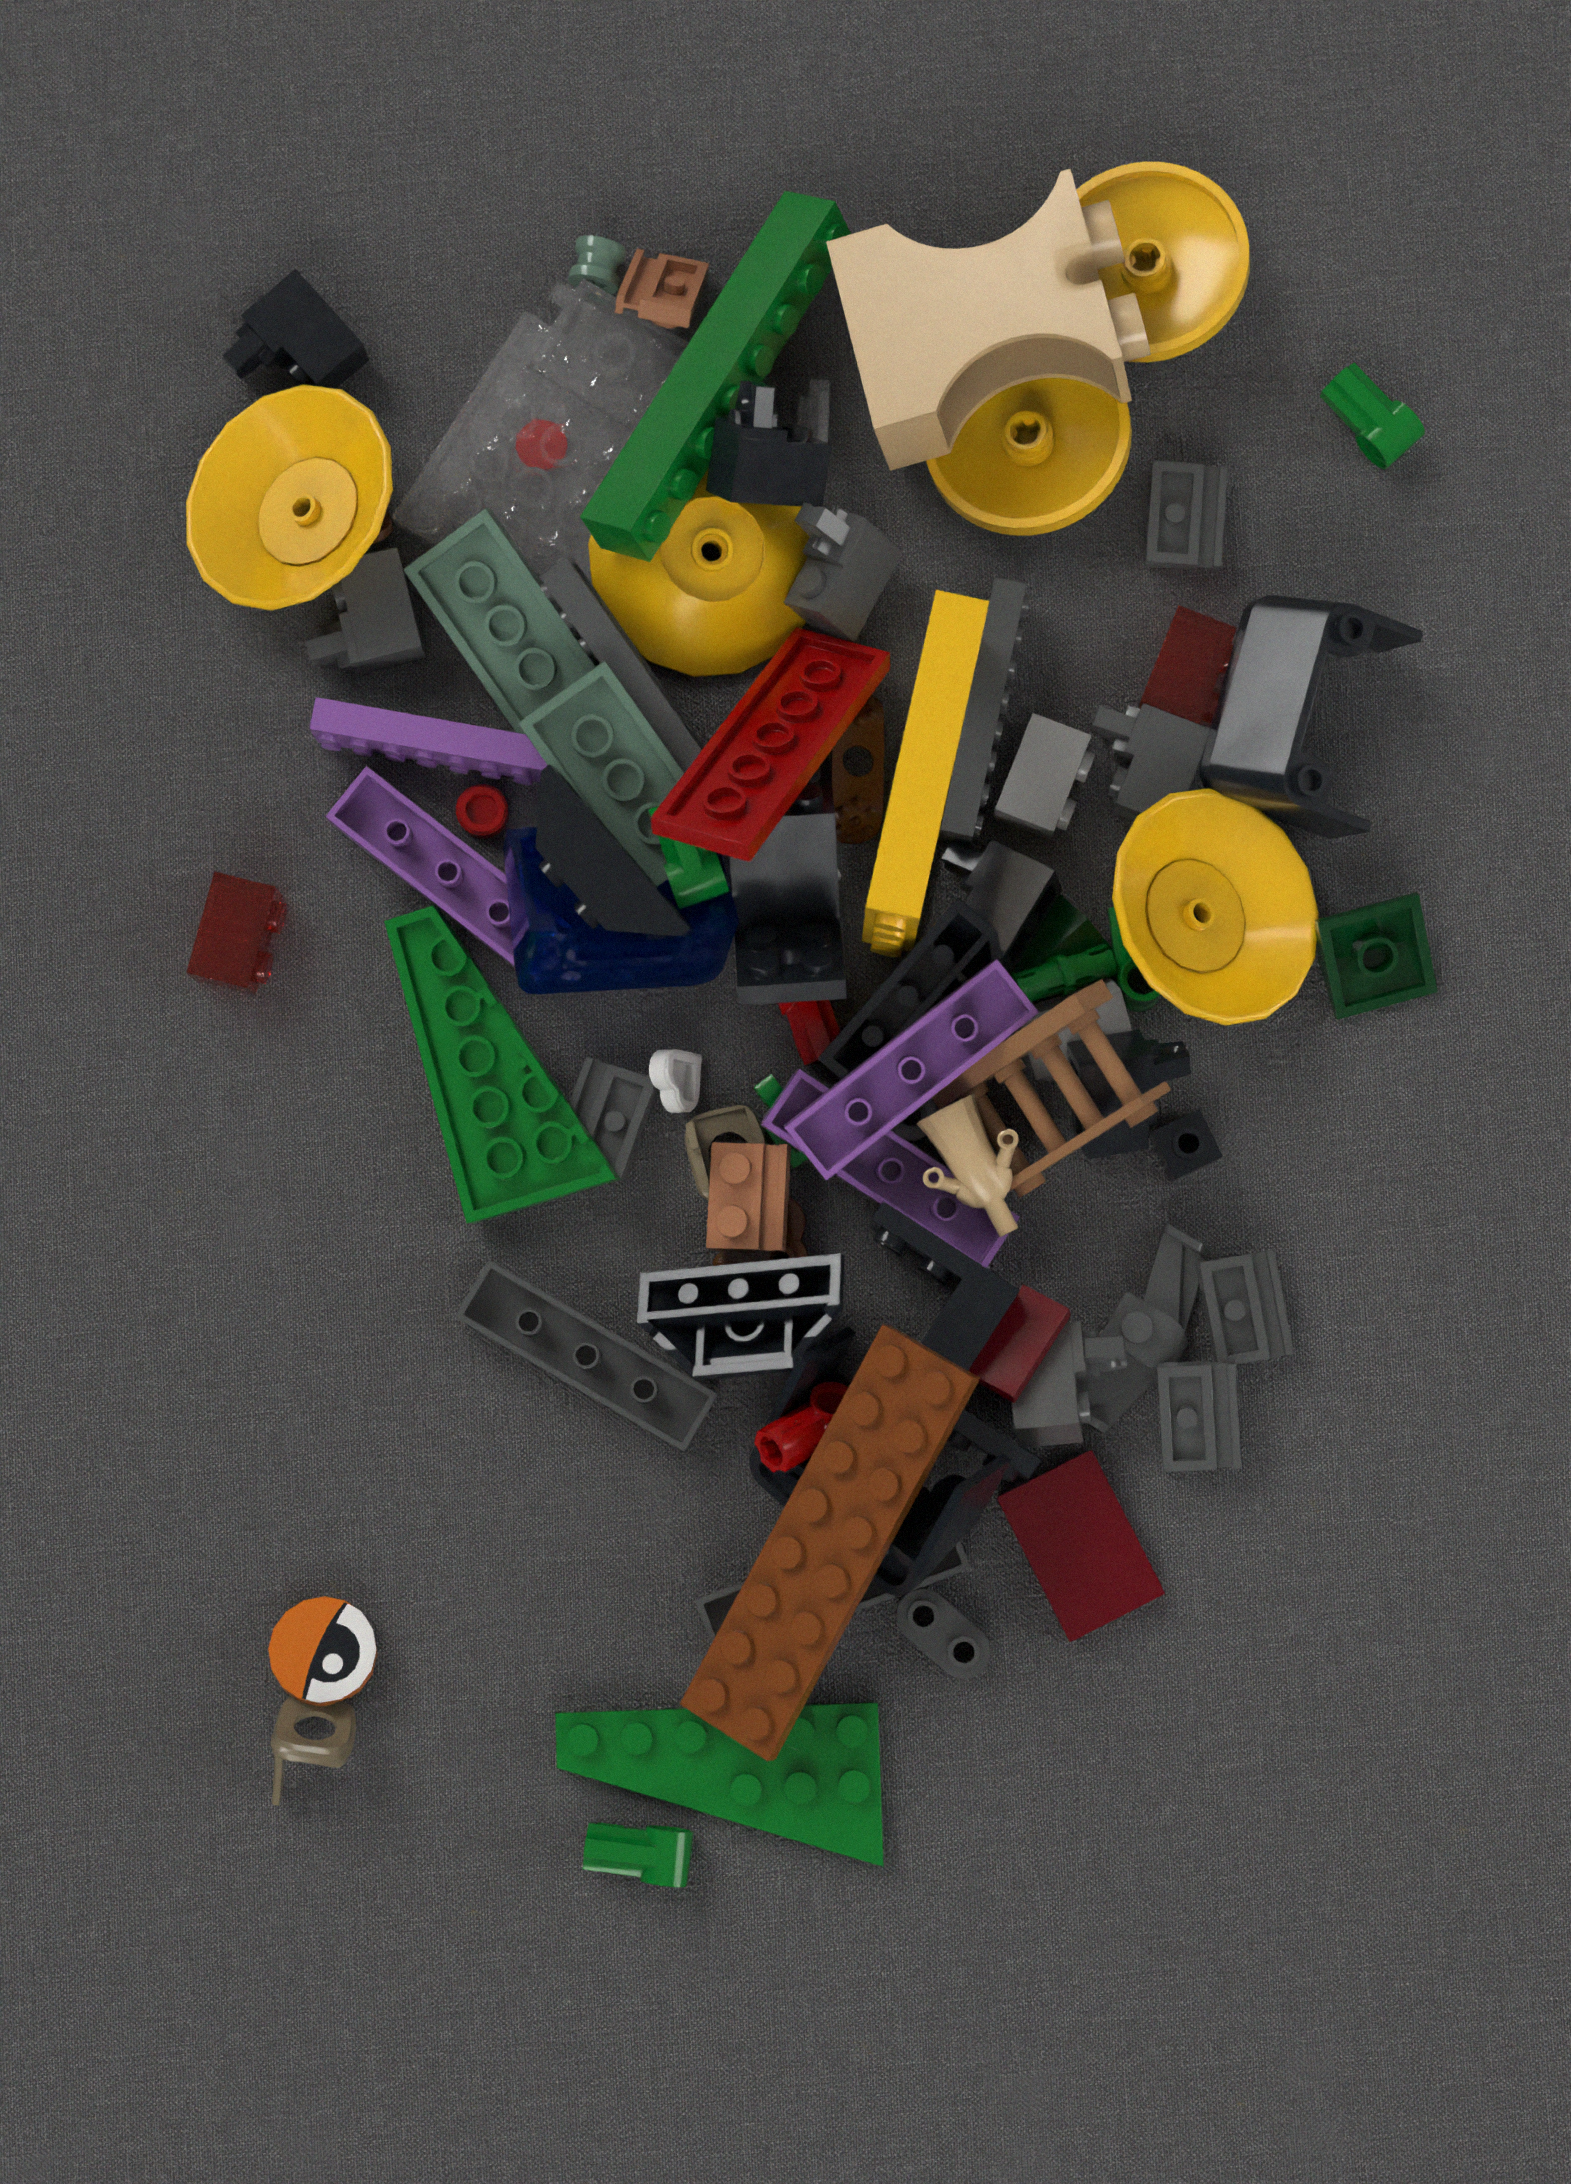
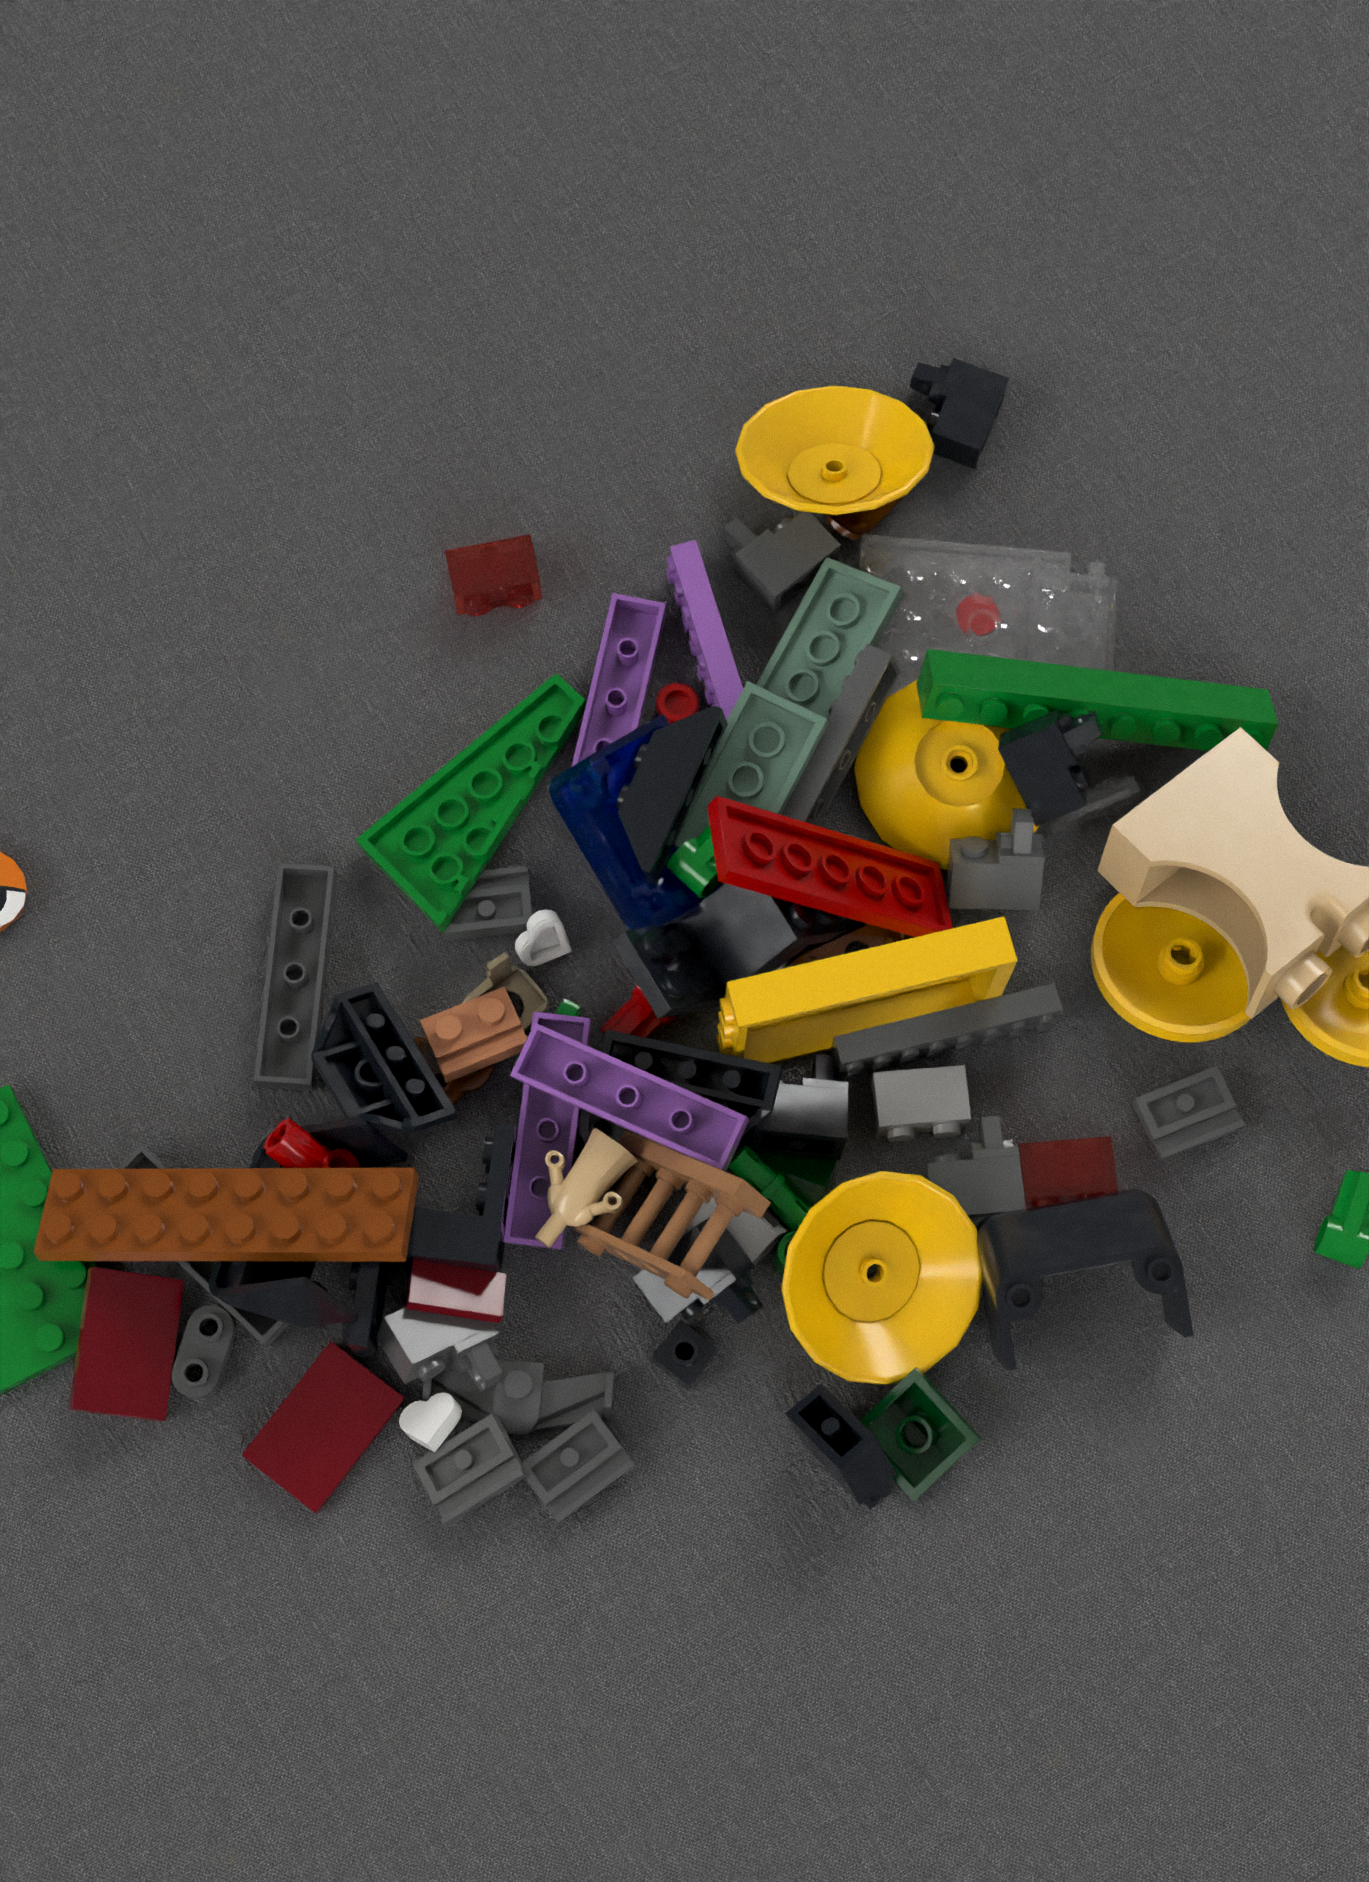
camera: 60 degrees right, 10 degrees down
(597, 262) = (1136, 587): sand green wheel -> none
(663, 289) = (1142, 639): nougat plate -> none
(901, 1709) = (126, 1344): none -> dark red tile
(1129, 1432) = (431, 1420): none -> white tile
(1357, 1033) = (843, 1446): none -> black hinge

